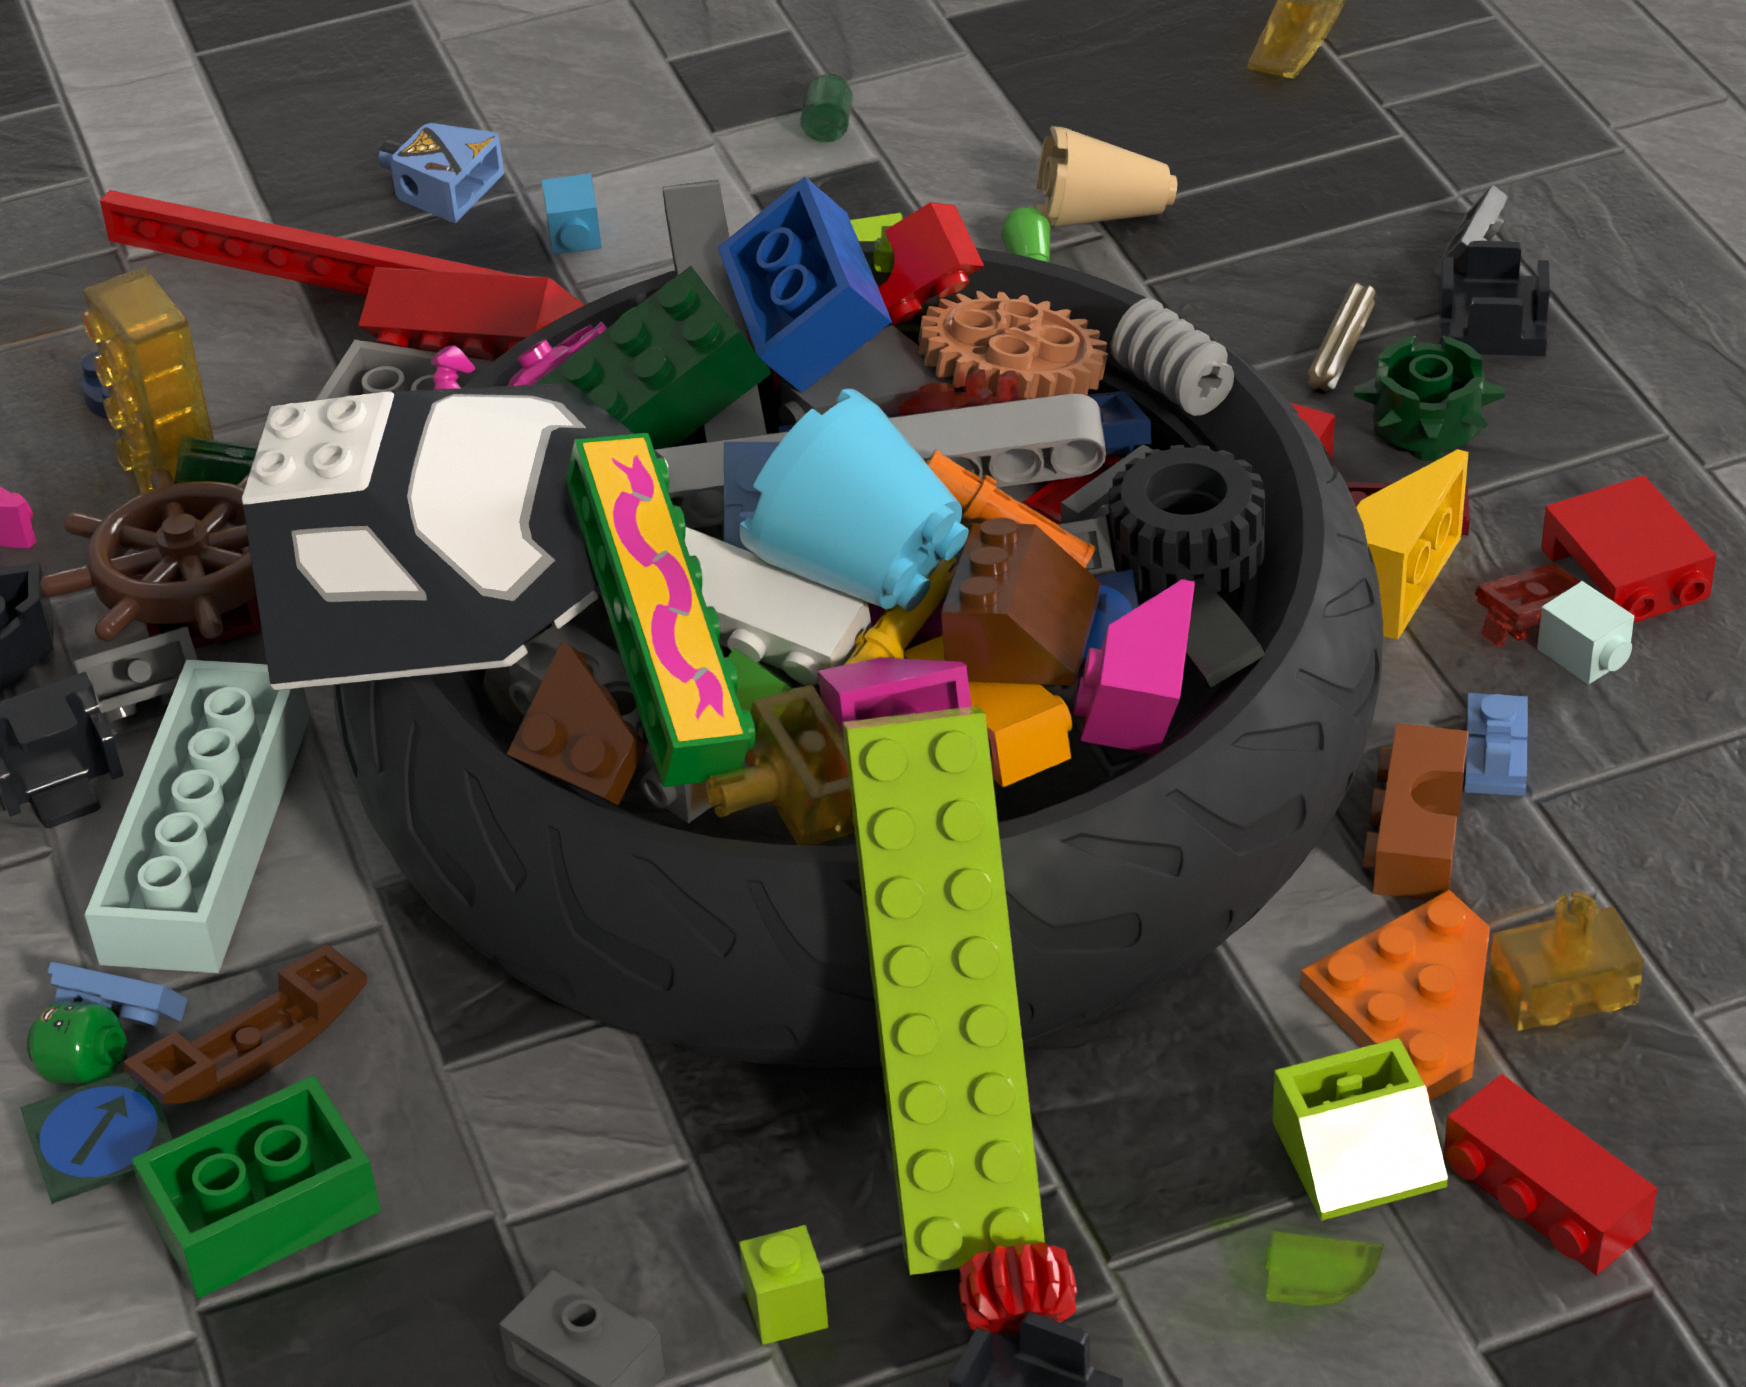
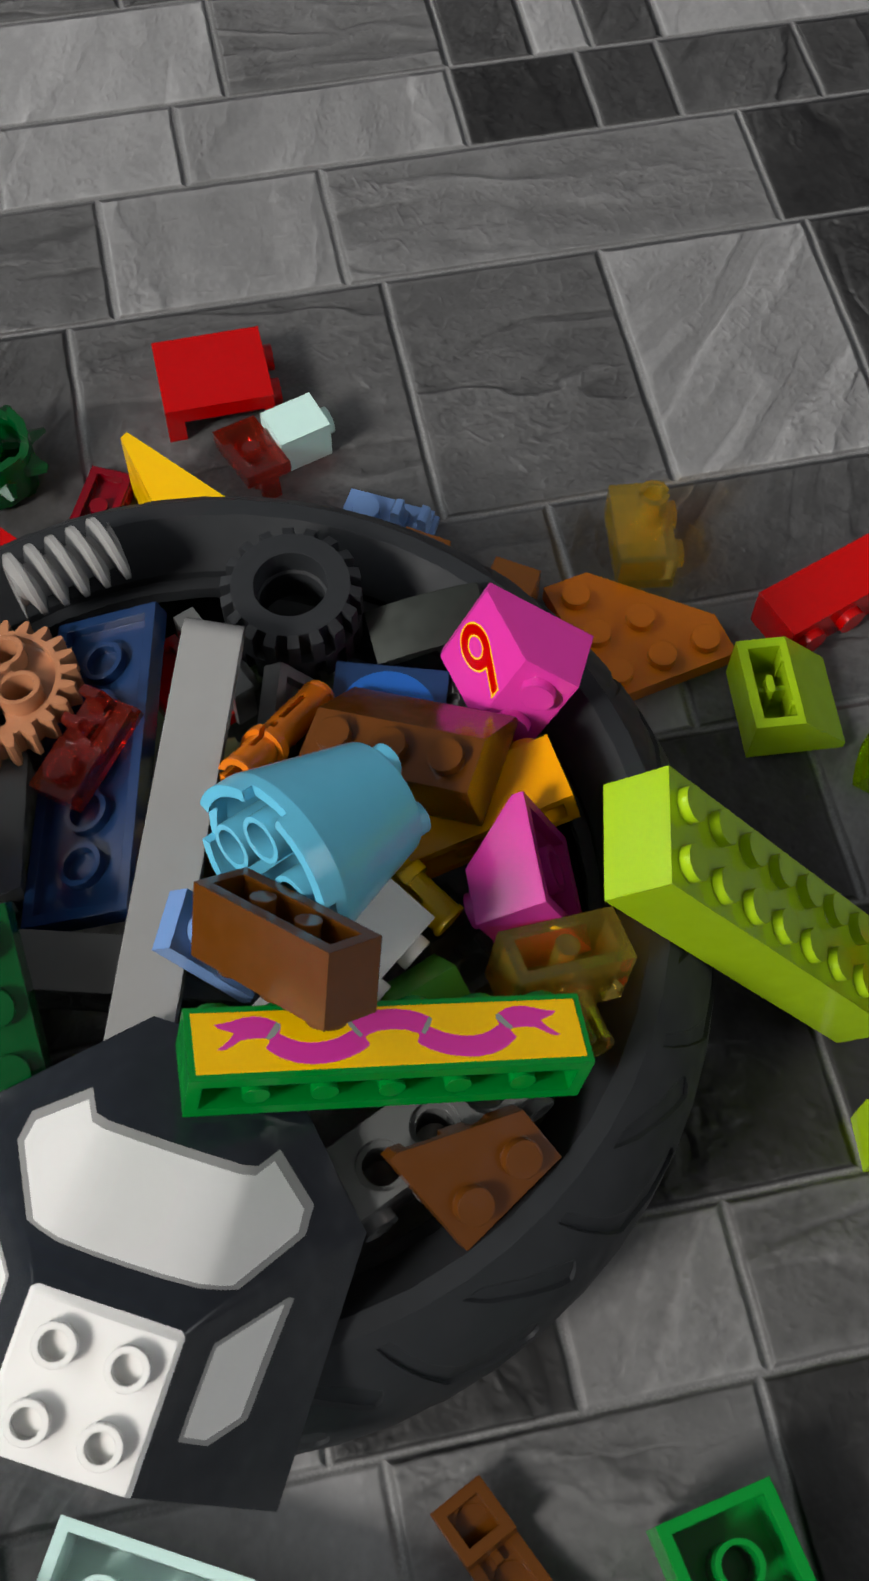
camera: 85 degrees left, 20 degrees up
(706, 479) = (286, 948): none -> reddish brown brick

